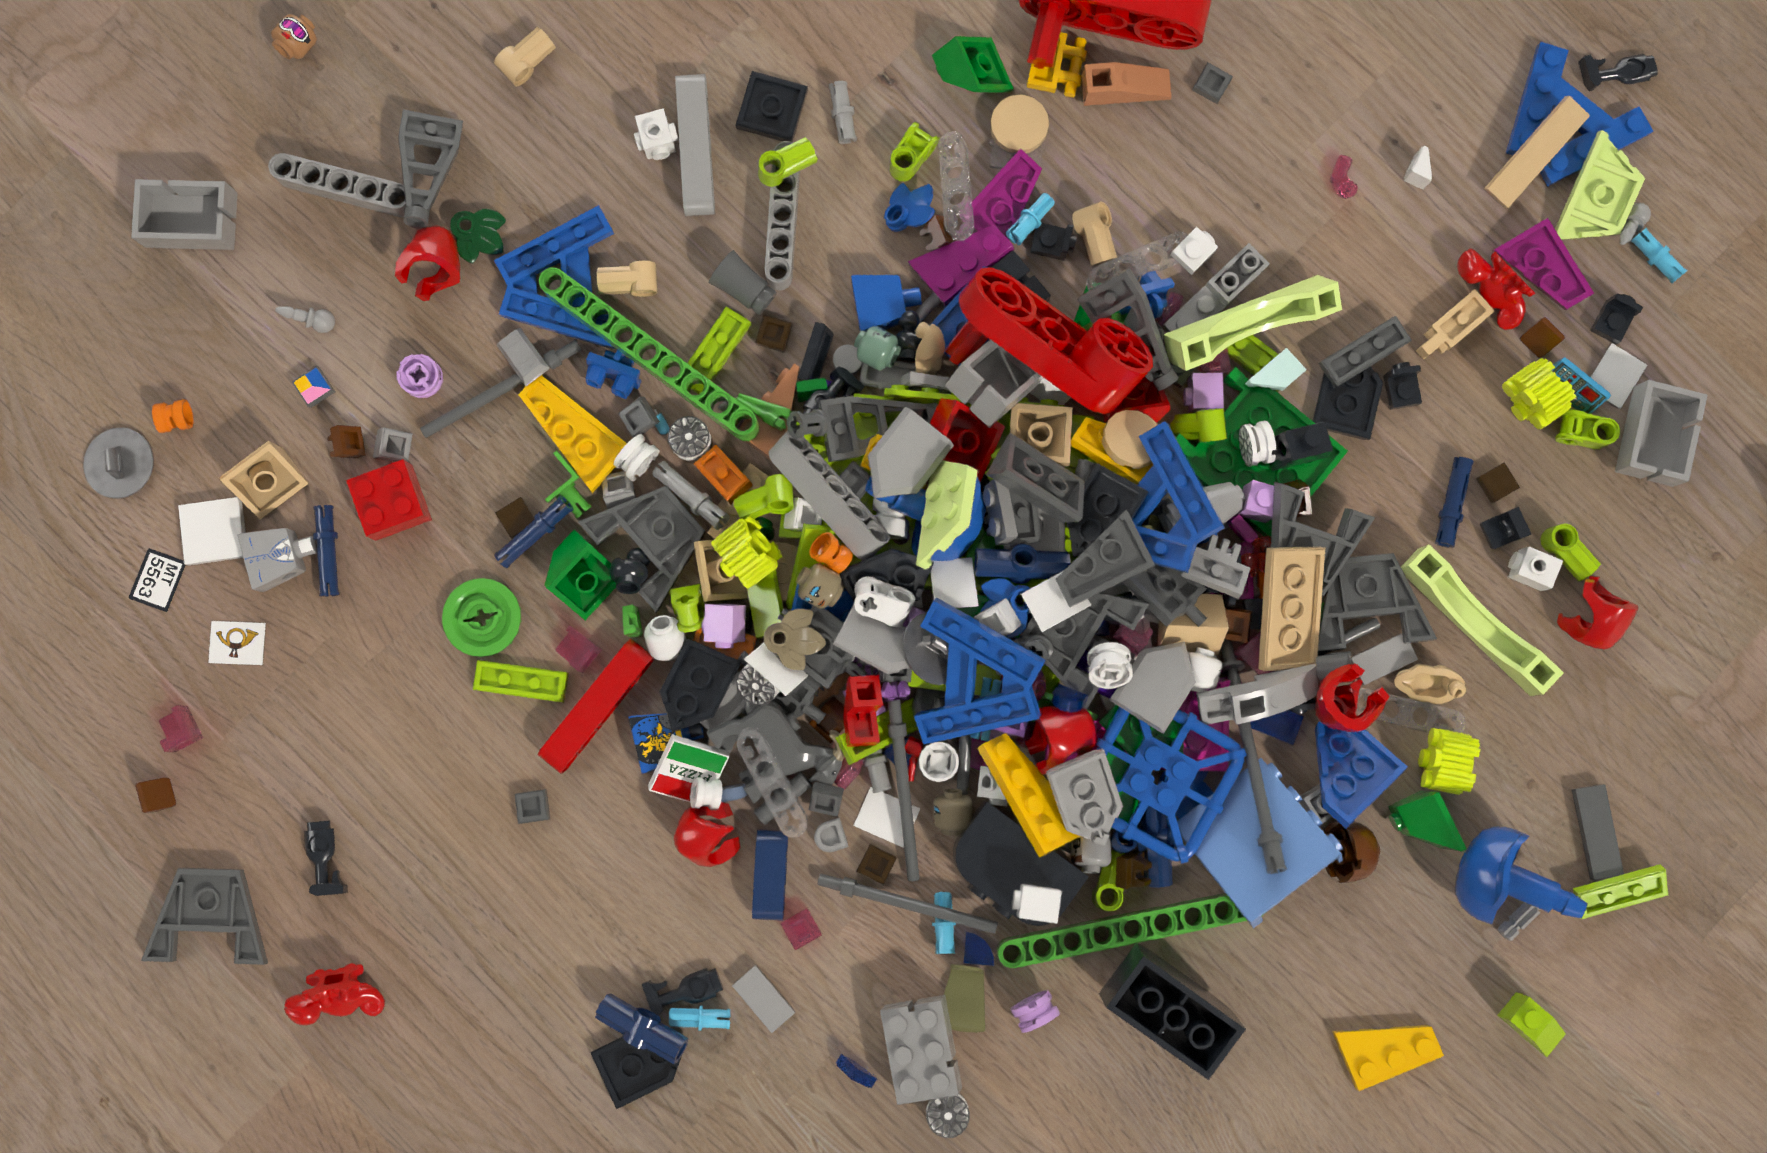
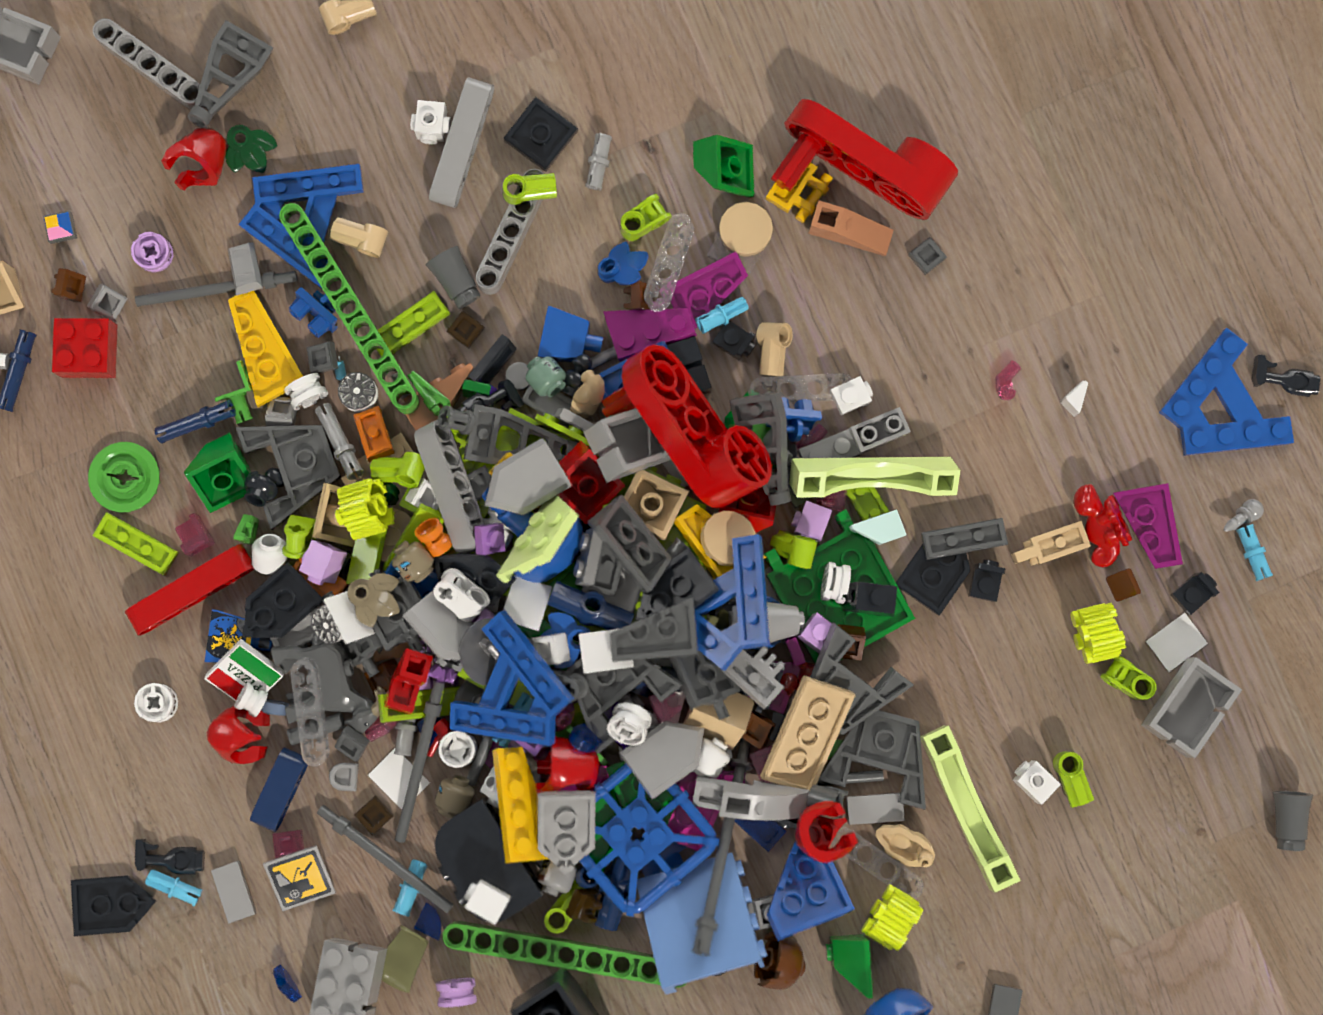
camera: 20 degrees right, 0 degrees up
(320, 320) = (87, 172): light grey bar -> none
(515, 517) = (185, 402): dark brown tile -> none
(532, 806) = (104, 653): dark grey tile -> none
(606, 835) = (156, 702): none -> white wheel
(641, 1028) = (120, 876): dark blue piece -> none
(827, 957) = (299, 878): none -> piece
(890, 531) = (489, 538): none -> medium lavender plate
(1453, 506) = (991, 695): dark blue pin -> none
(1498, 482) = (1035, 695): dark brown tile -> none
(1505, 528) = (1023, 737): black bracket -> none
(1537, 151) = (1182, 422): tan tile -> none
(1587, 391) = (1138, 643): slope -> none
(1601, 193) = (1224, 480): yellowish green wing -> none
(1611, 617) = (1081, 845): red piece -> none

